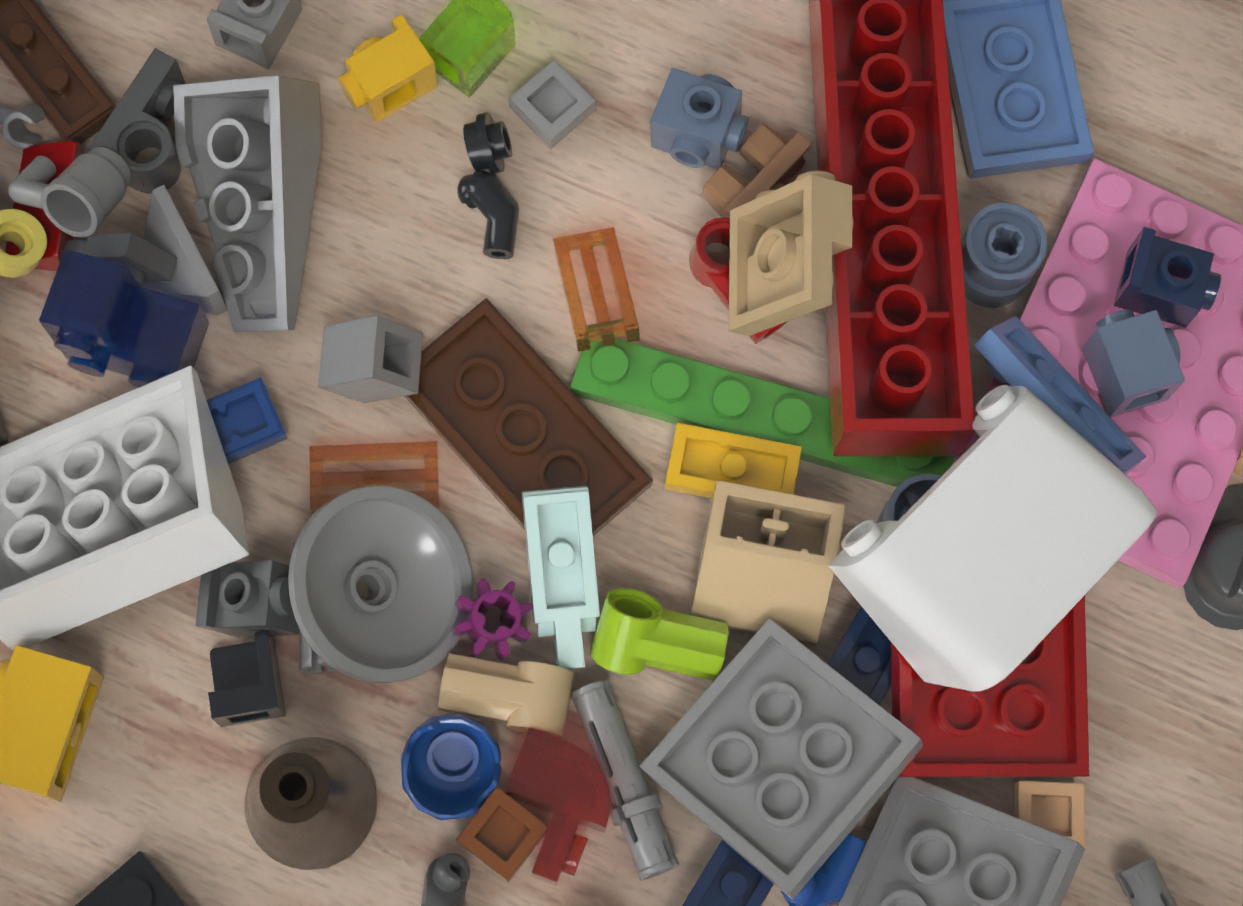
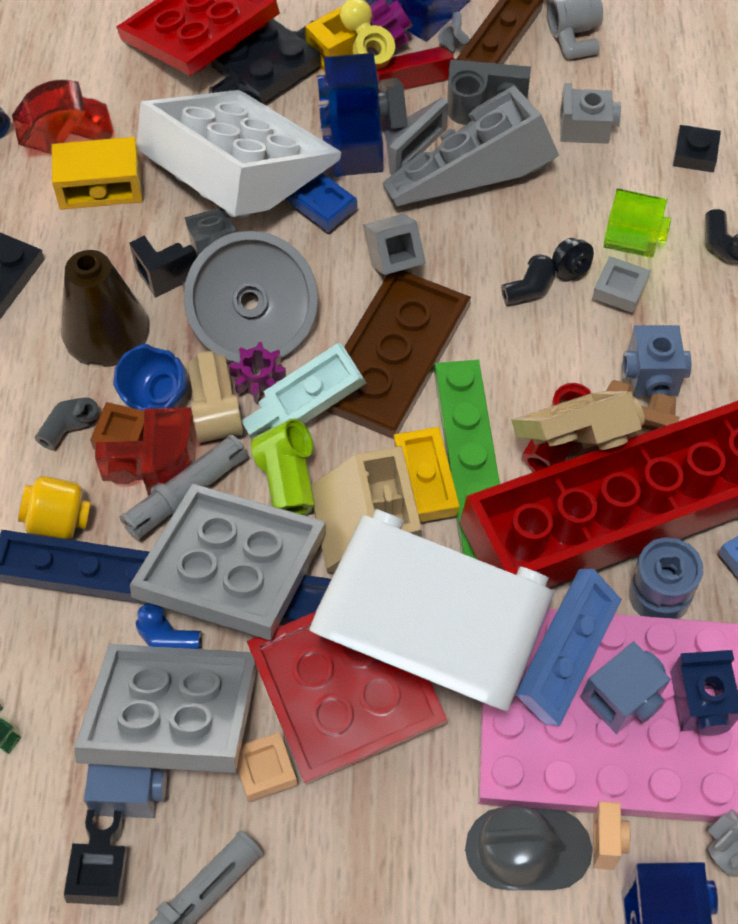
camera: 75 degrees right, 15 degrees down
(80, 195) = (422, 64): light grey piece -> none
(373, 452) = (337, 310): clear orange tile -> none
(388, 72) = (588, 191): yellow brick -> none
(604, 329) = (513, 357): clear orange tile -> none

